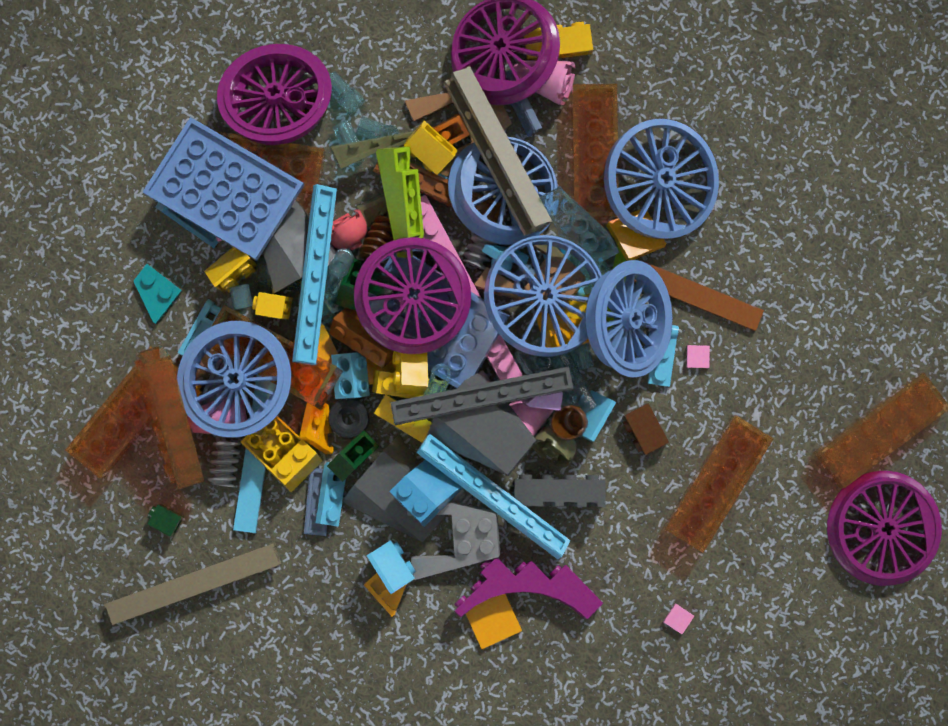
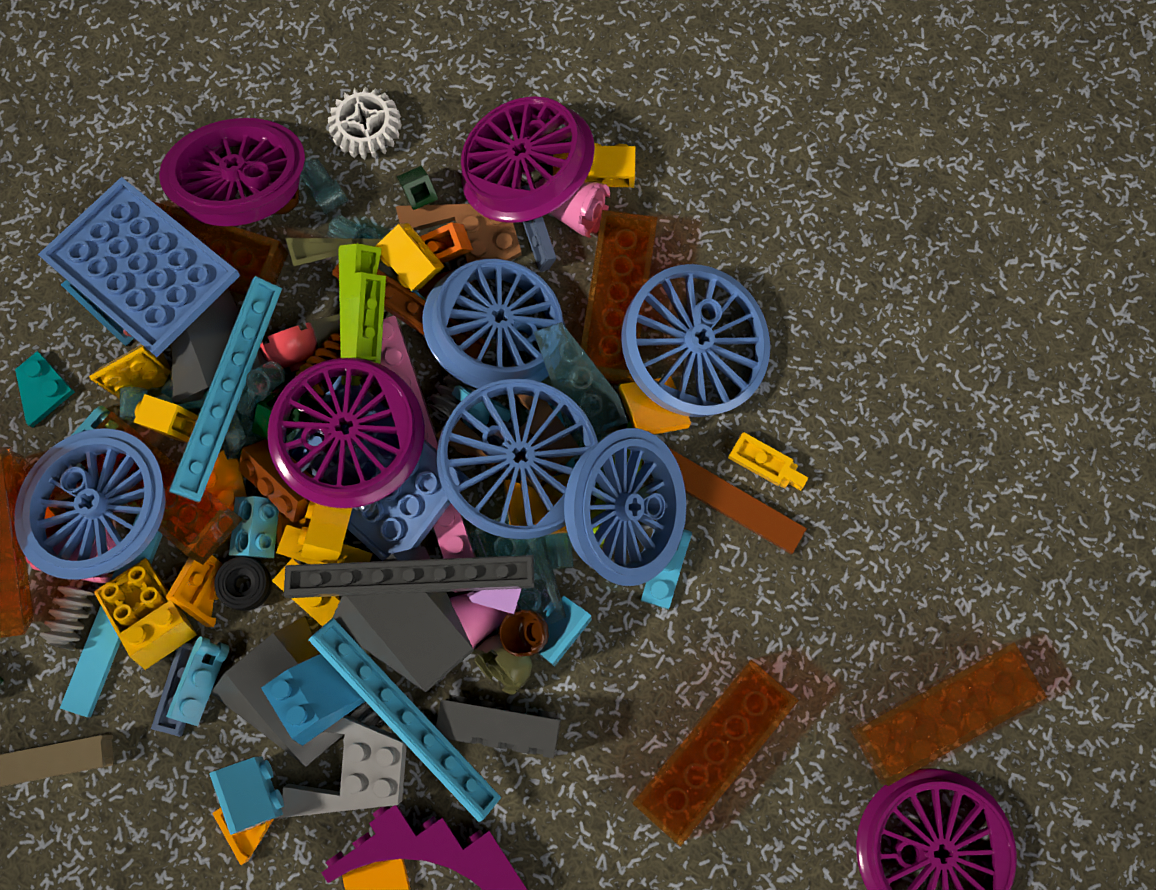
camera: 15 degrees right, 10 degrees down
(345, 134) = (316, 228): clear light blue piece -> none
(352, 456) = (232, 633): dark green brick -> none
(357, 36) = (348, 120): none -> white gear
(421, 84) = (417, 187): none -> dark green brick
(435, 385) = (354, 553): clear light blue piece -> none
(497, 151) = (492, 274): tile -> none
(645, 429) = (628, 660): reddish brown brick -> none
(697, 356) = (712, 575): bright pink tile -> none
(727, 264) = (767, 462): none -> yellow hinge

